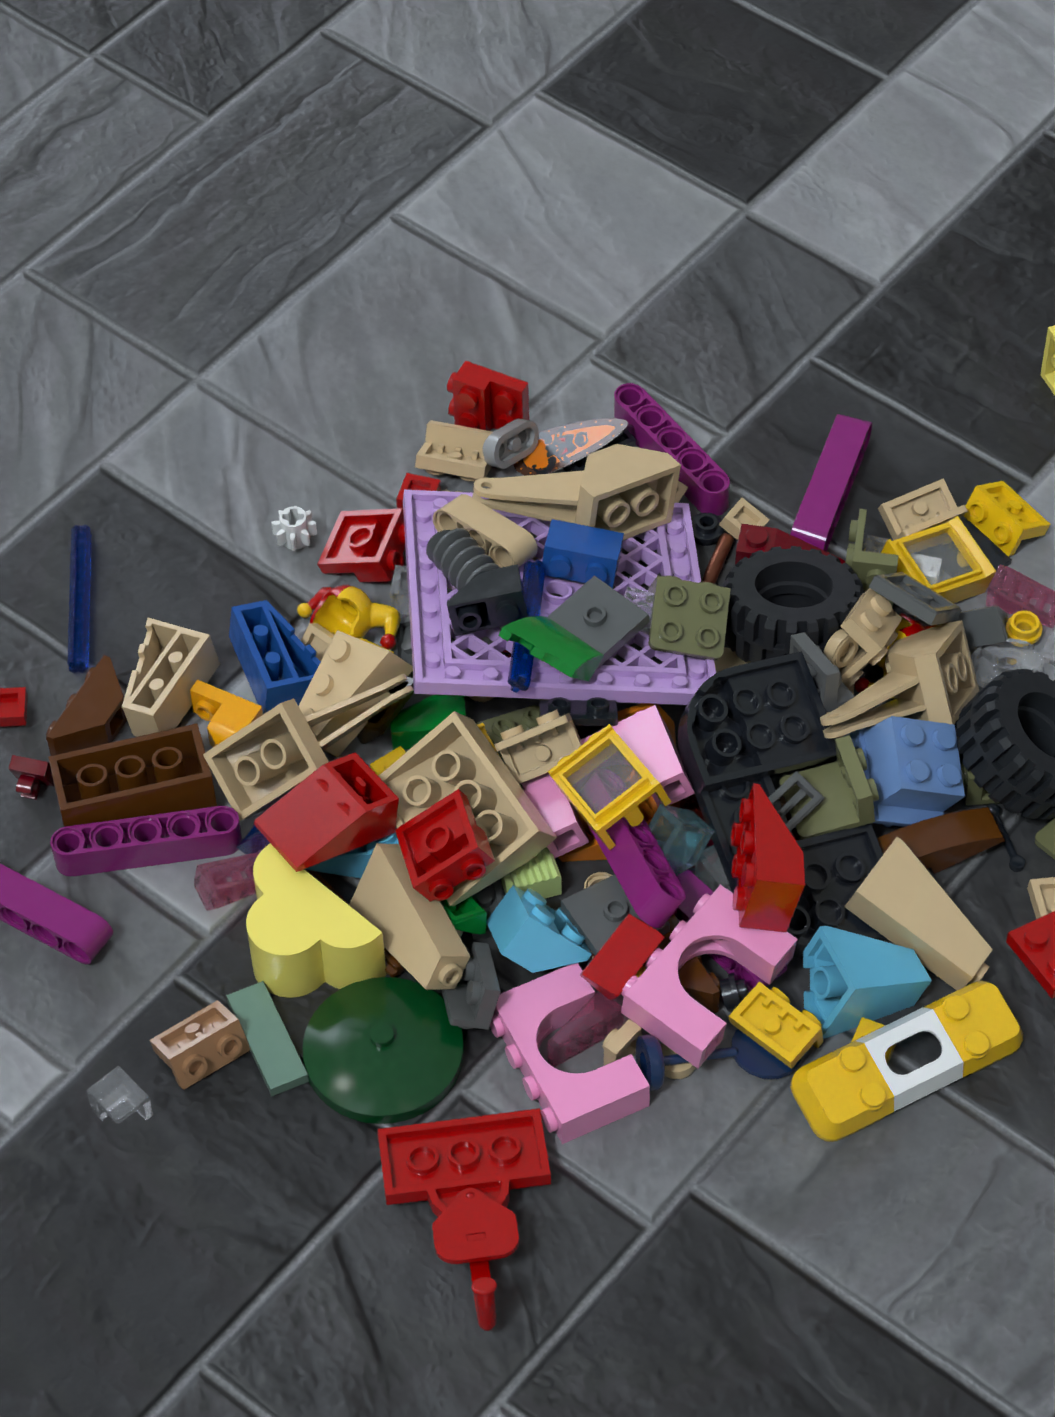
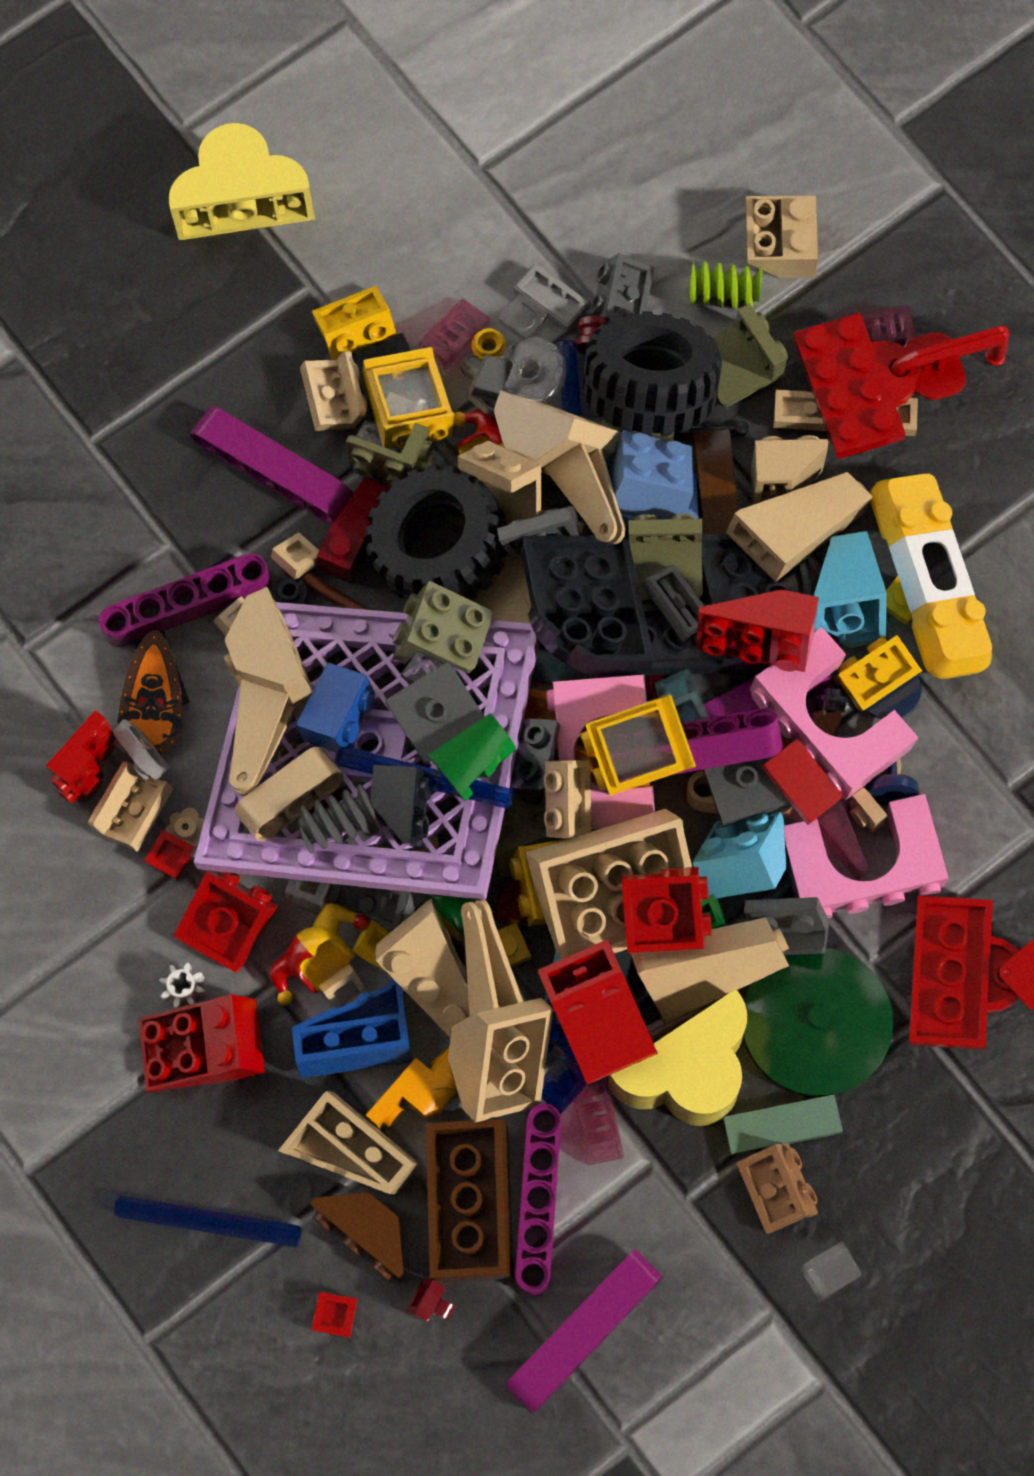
camera: 75 degrees left, 20 degrees up
(244, 556) = (202, 1044): none -> red slope
(840, 649) = (506, 504): tan tile -> none
(915, 598) = (473, 421): dark grey plate -> none
(974, 884) = (785, 465): none -> tan slope

